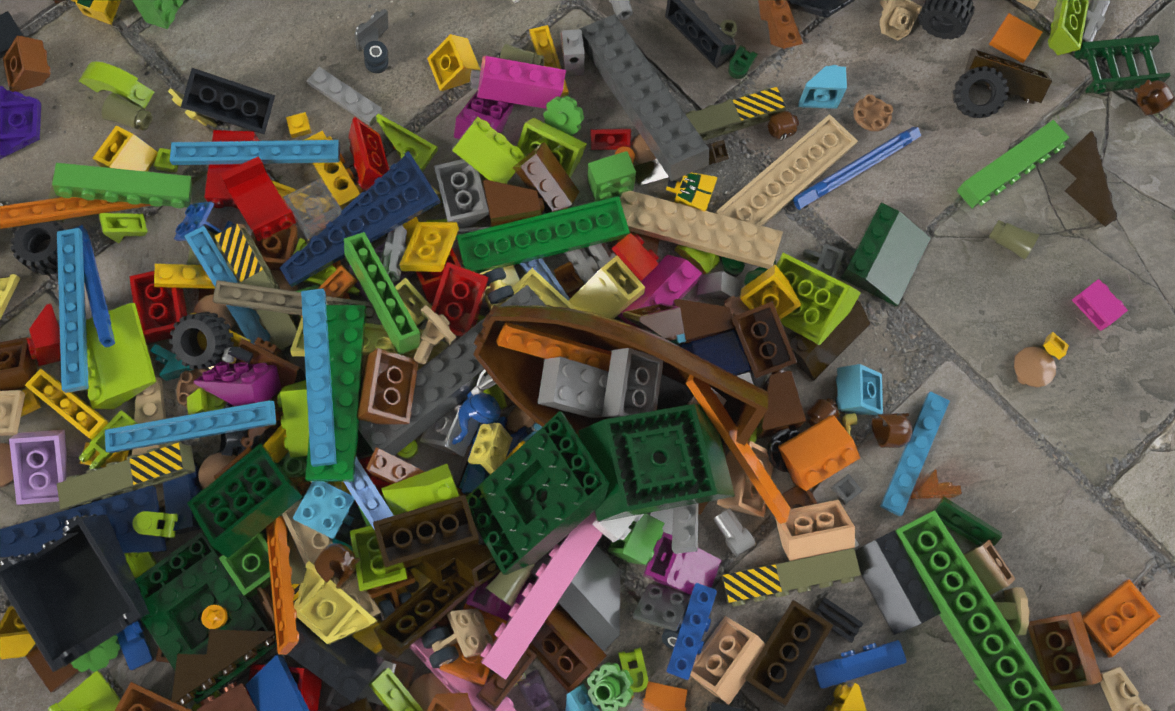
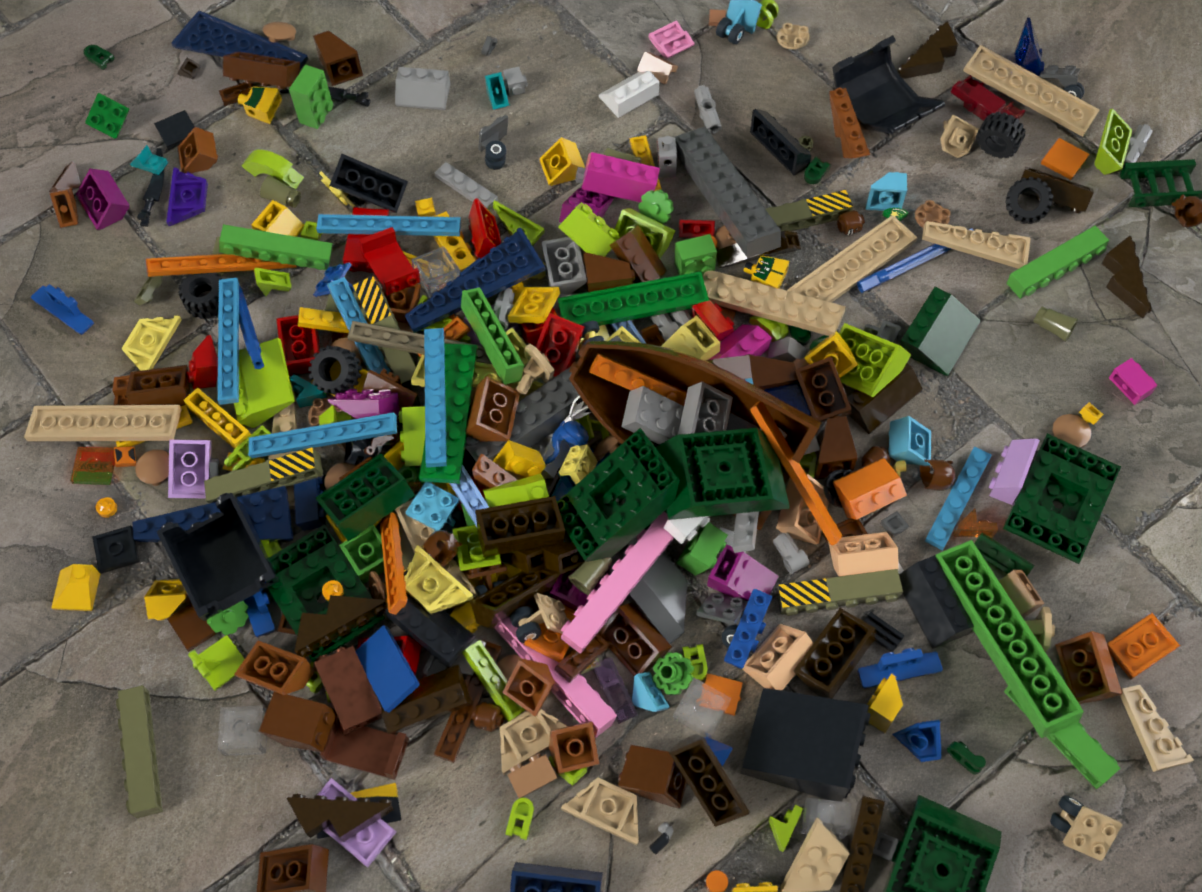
camera: 10 degrees right, 10 degrees down
(69, 464) = (214, 467): none -> dark grey tile
(147, 523) = (280, 512): lime plate -> none
(237, 352) = (364, 380): black arm -> none
(422, 445) = (520, 460): none -> yellow slope
(834, 110) = (899, 213): none -> green tile
(943, 149) = (1007, 250): none -> tan wing
(976, 419) = (1013, 469): none -> lavender slope
(1048, 432) = (1073, 479): none -> dark green slope

